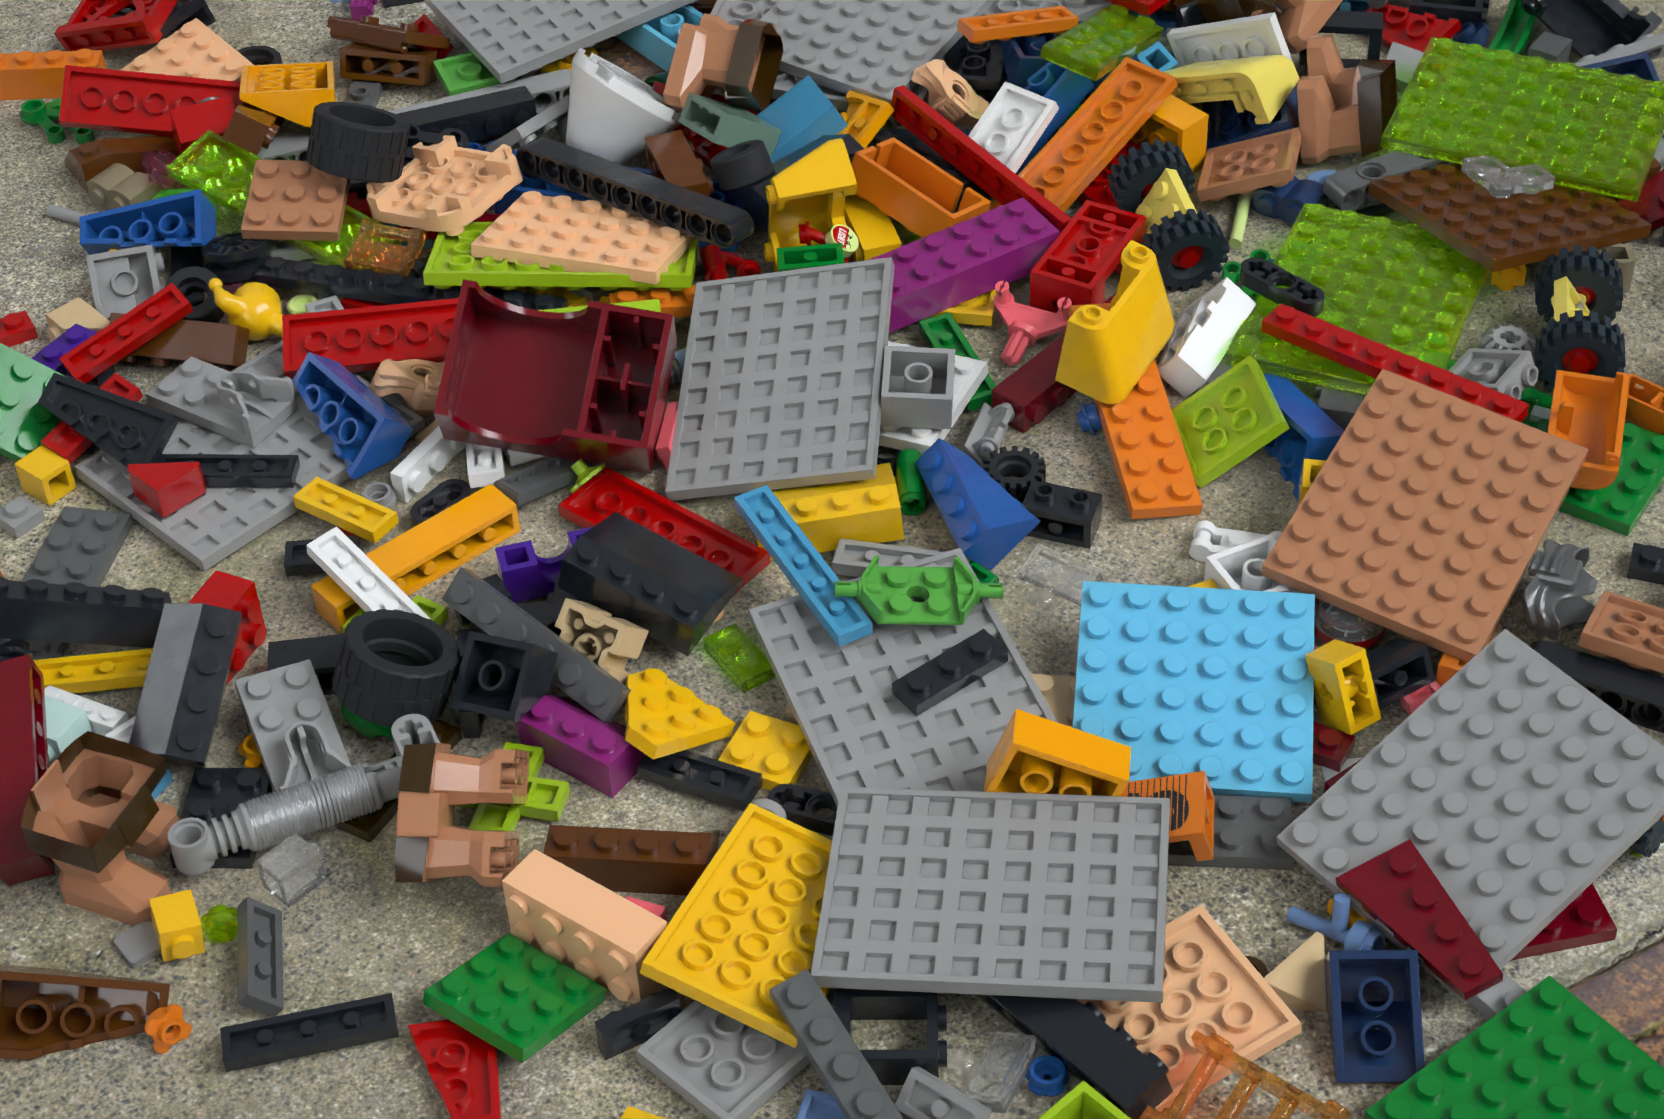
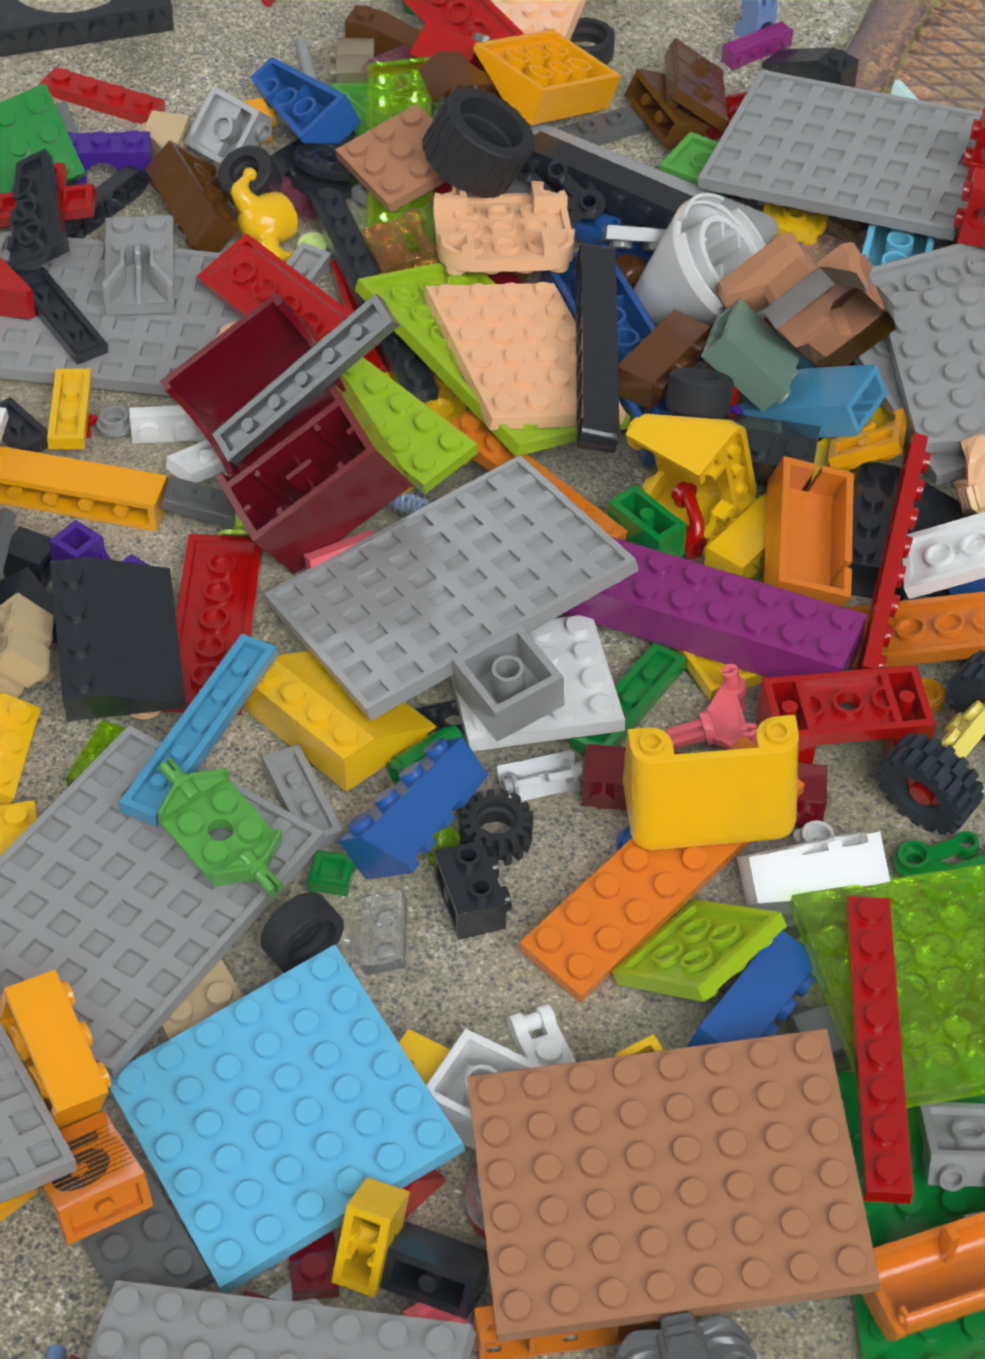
camera: 50 degrees right, 5 degrees up
(126, 334) = (148, 163): red plate -> none
(355, 418) = (184, 330): blue wedge -> none
(439, 499) = (136, 457): black plate -> none
(532, 331) = (305, 379): none -> plate
(715, 259) = (604, 464): red plant -> none
(844, 235) = (701, 524): tile -> none
(950, 672) = (149, 909): black plate -> none
(1034, 609) = (293, 918): none -> black tyre
(1264, 276) = (915, 900): black beam -> none

